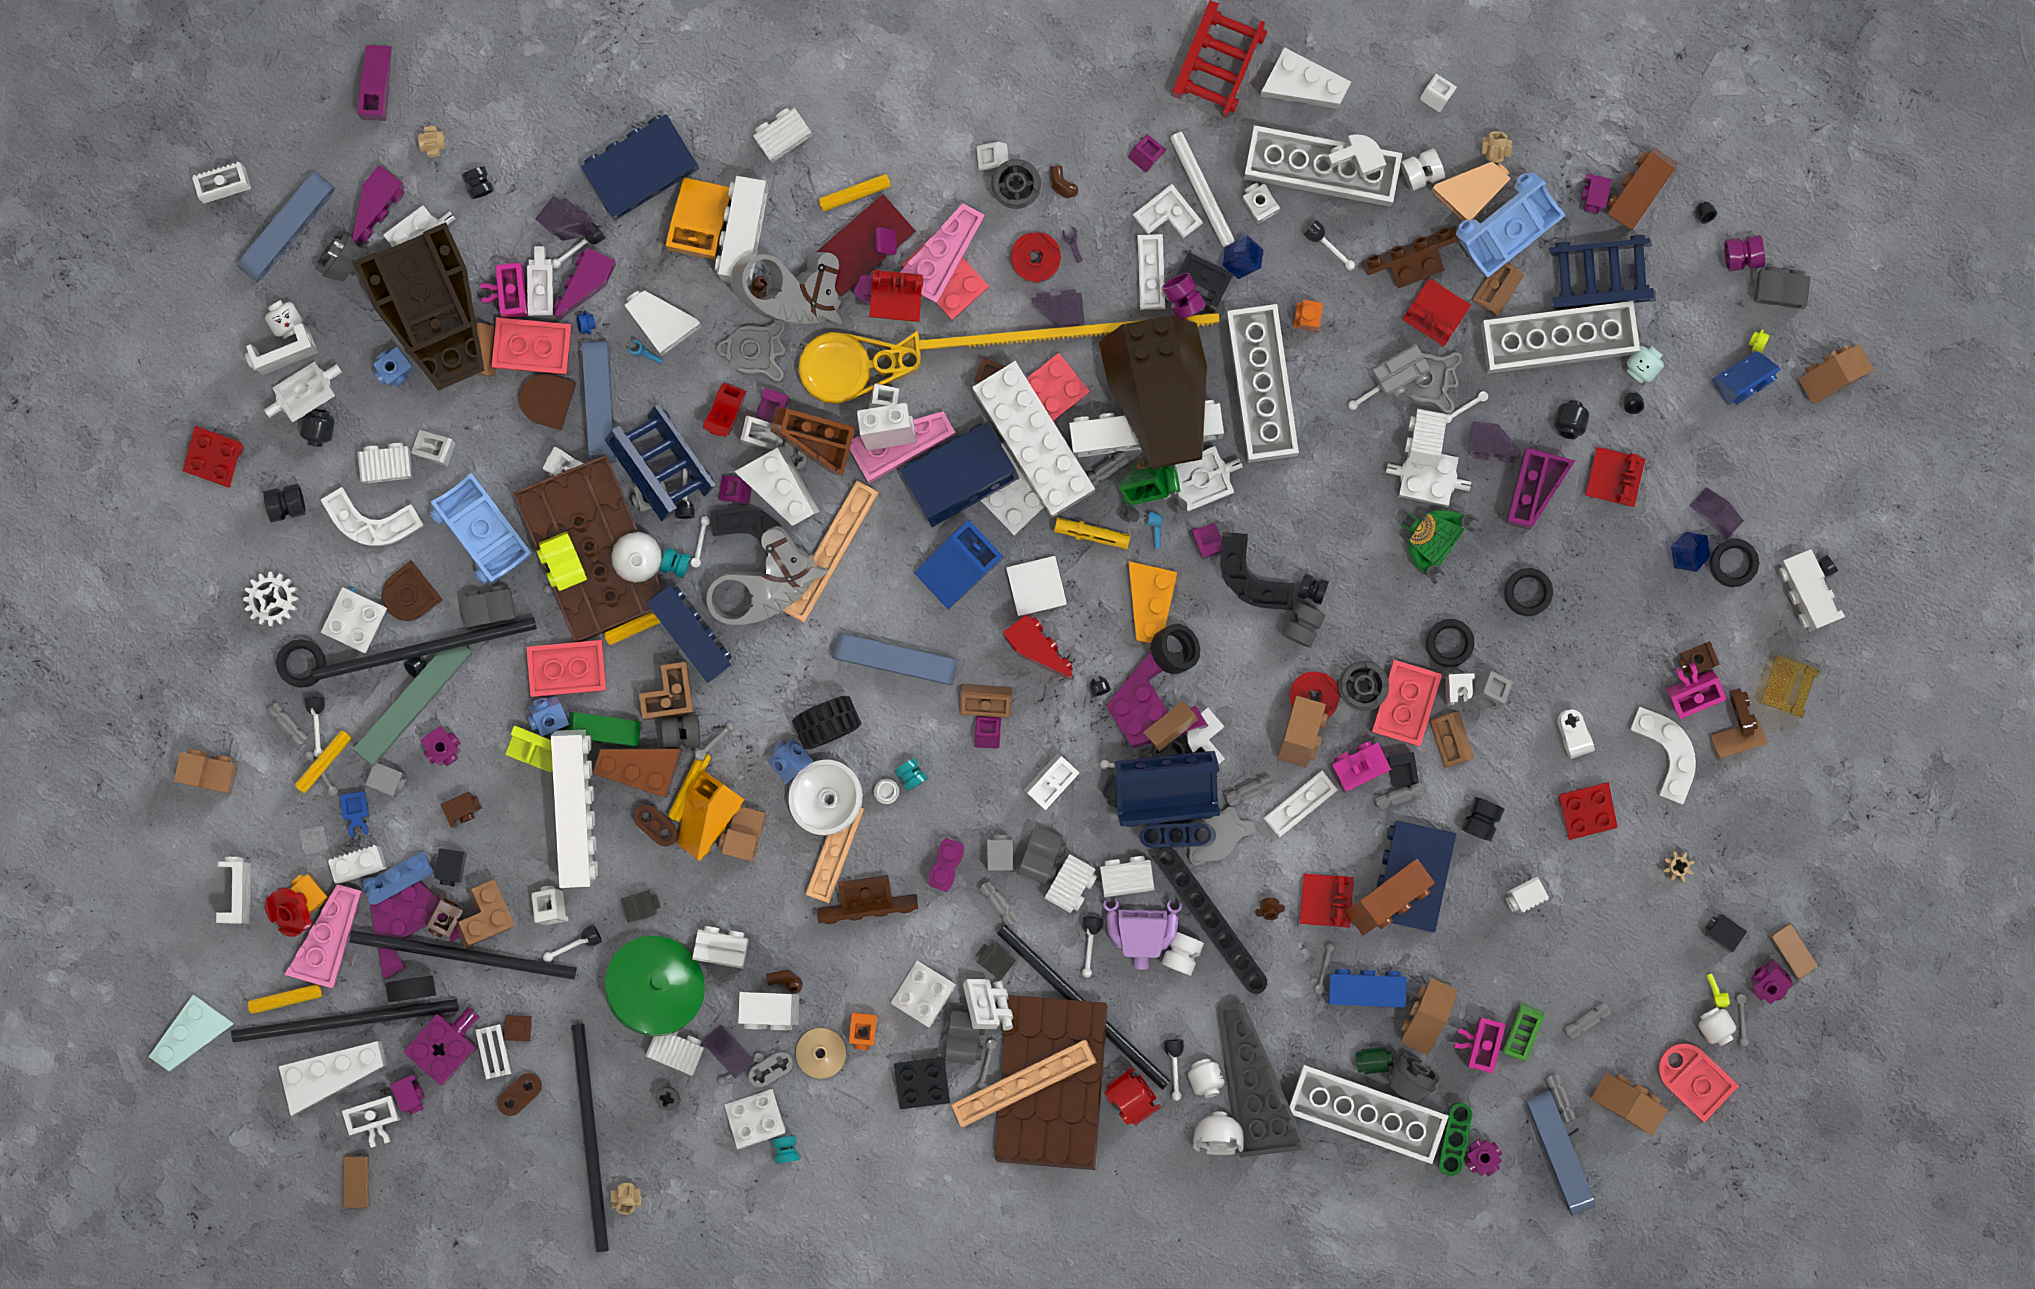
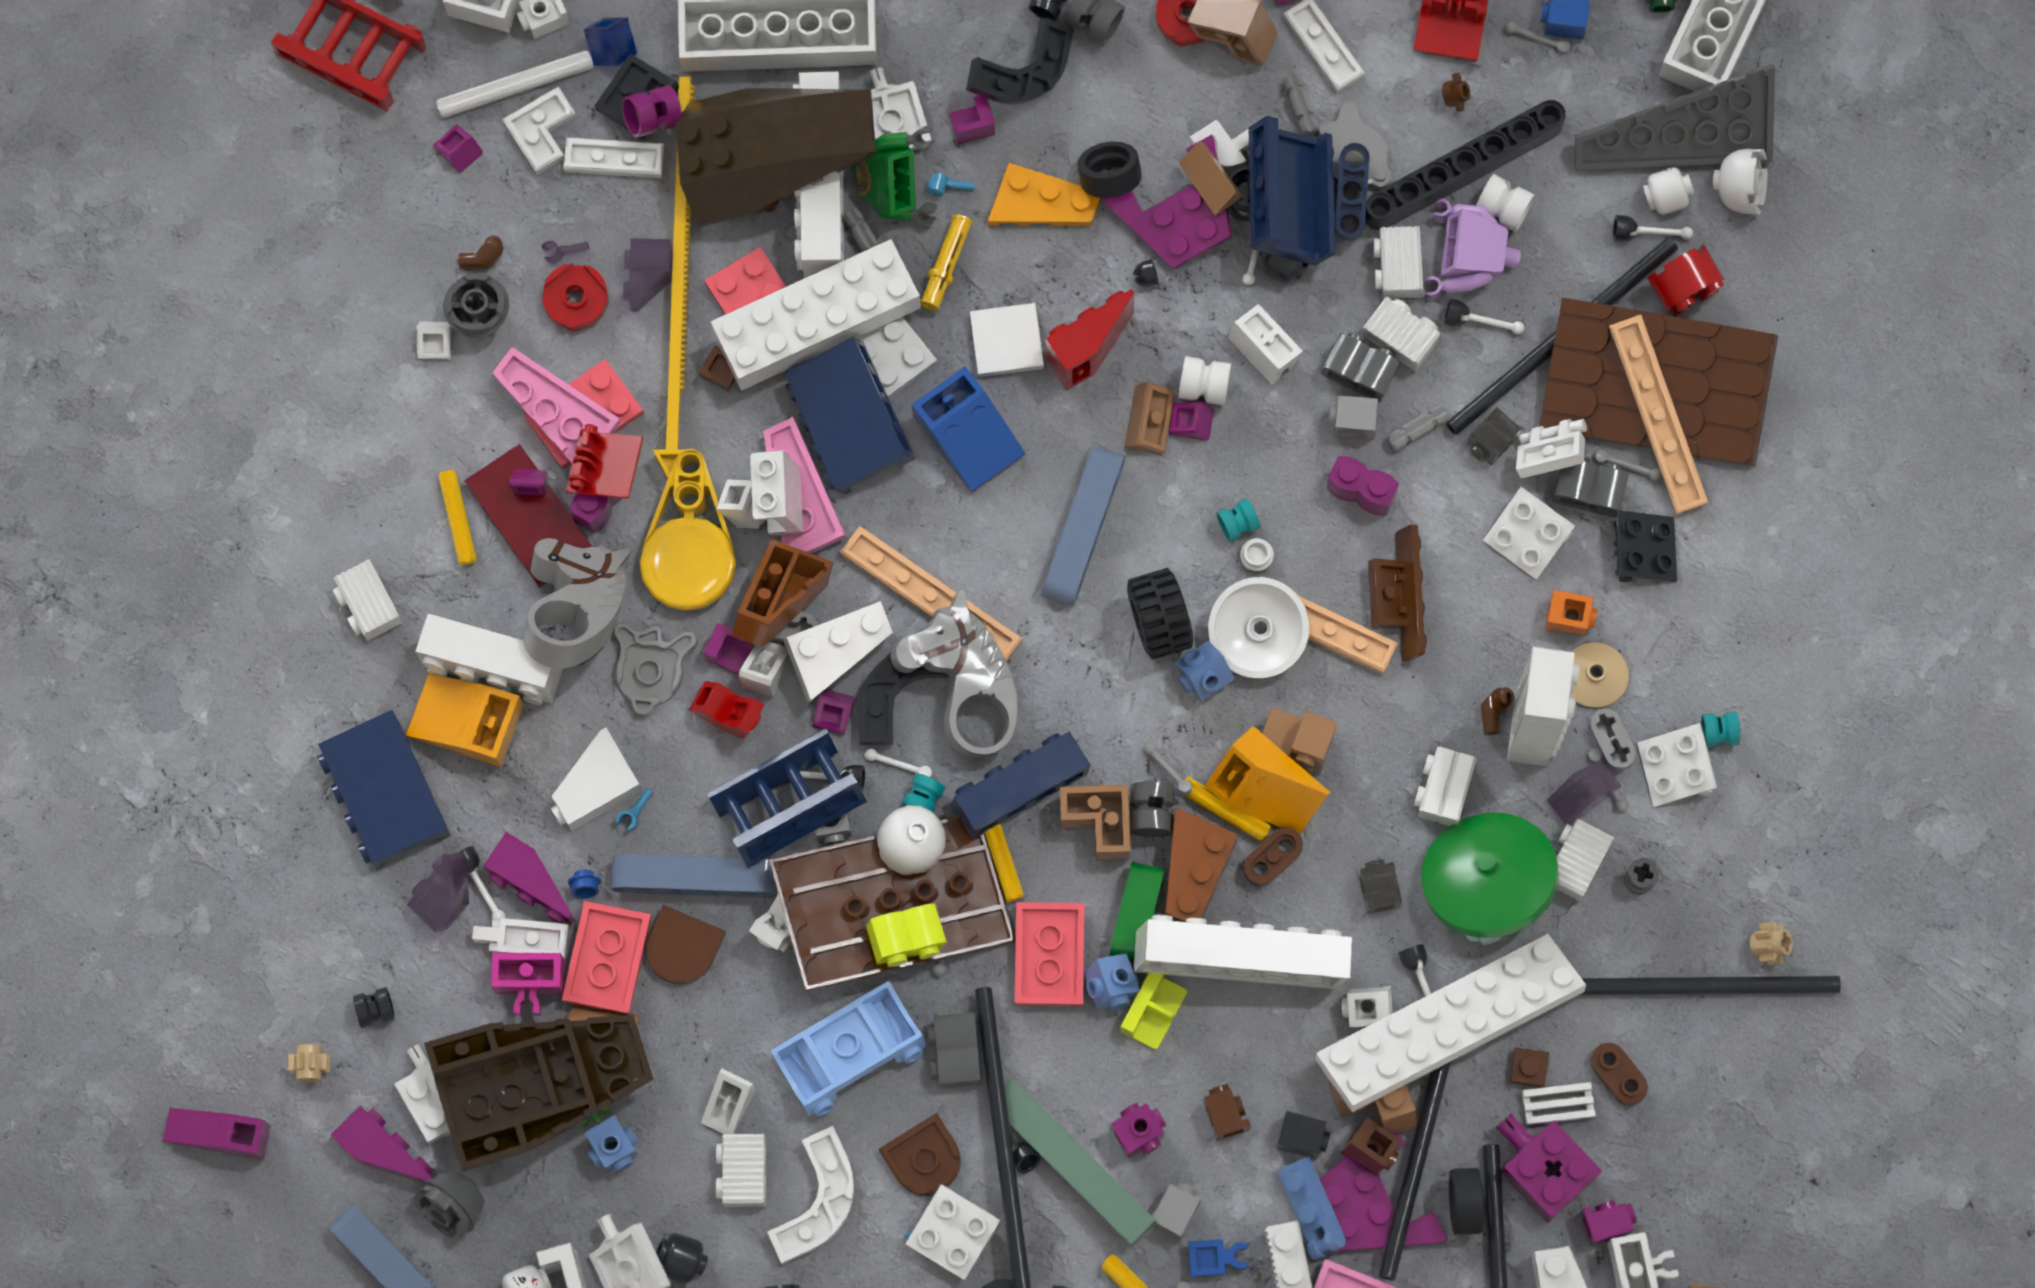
camera: 85 degrees left, 10 degrees down
(539, 966) = (1450, 1022): none -> white plate
(1016, 738) = (1204, 380): none -> white wheel

